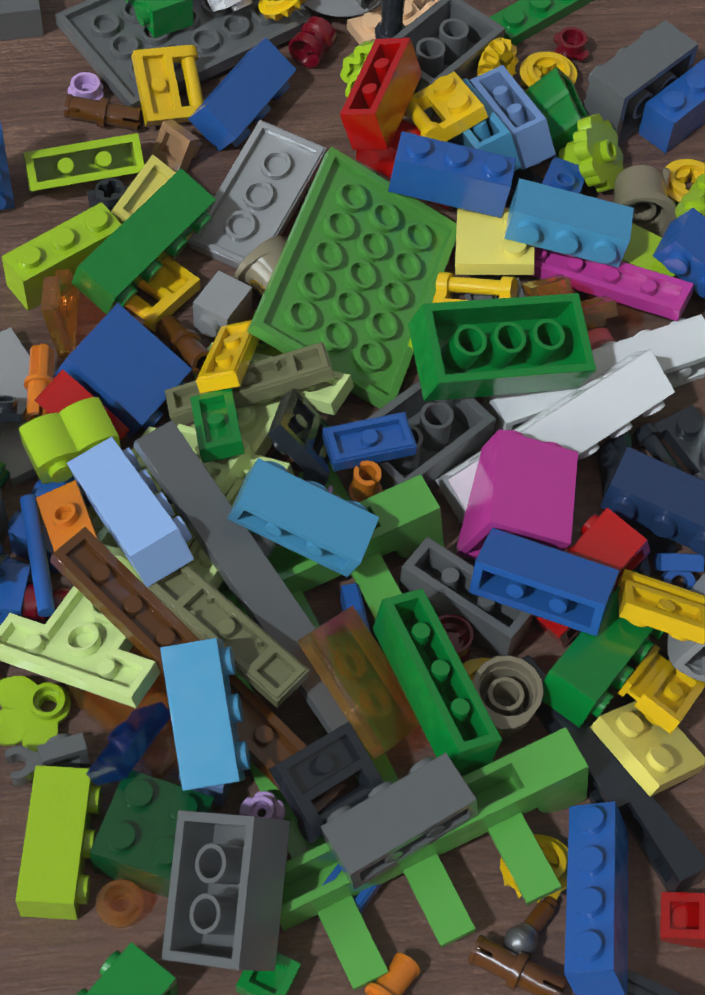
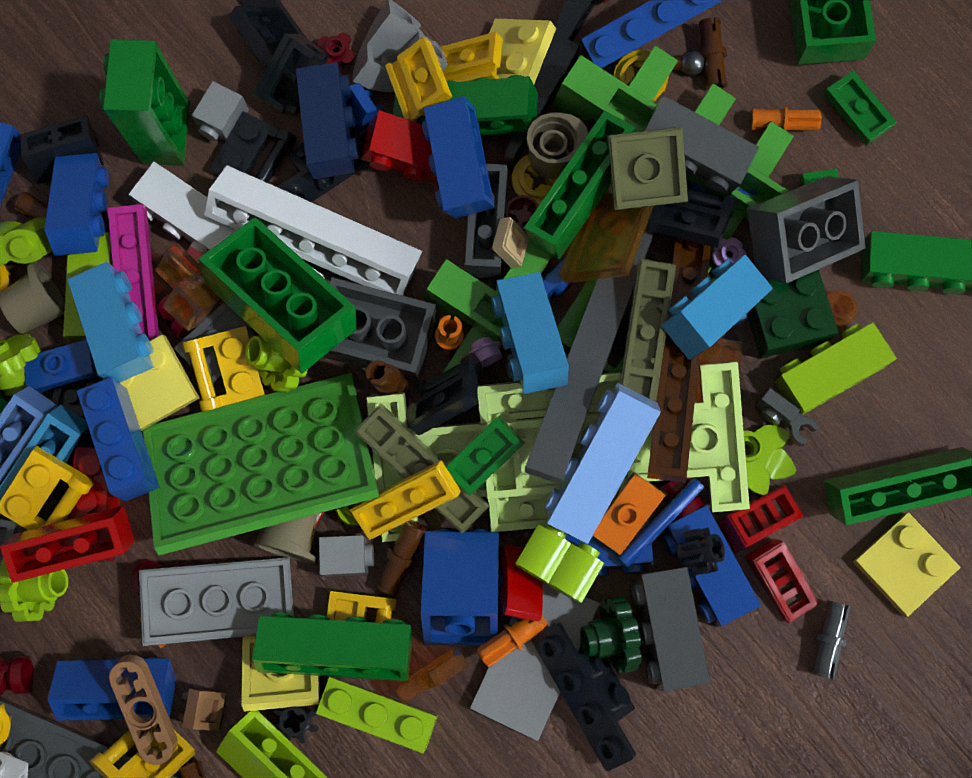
camera: 115 degrees left, 20 degrees up
(128, 743) = (755, 359): clear blue plate -> none
(221, 85) = (164, 730): none -> medium nougat beam
(358, 401) = (386, 377): none -> reddish brown pin
(369, 440) = (419, 345): blue plate -> none
(403, 734) = (647, 168): none -> olive tile
(424, 577) = (510, 242): none -> tan tile
(521, 490) = (394, 217): dark pink slope -> none

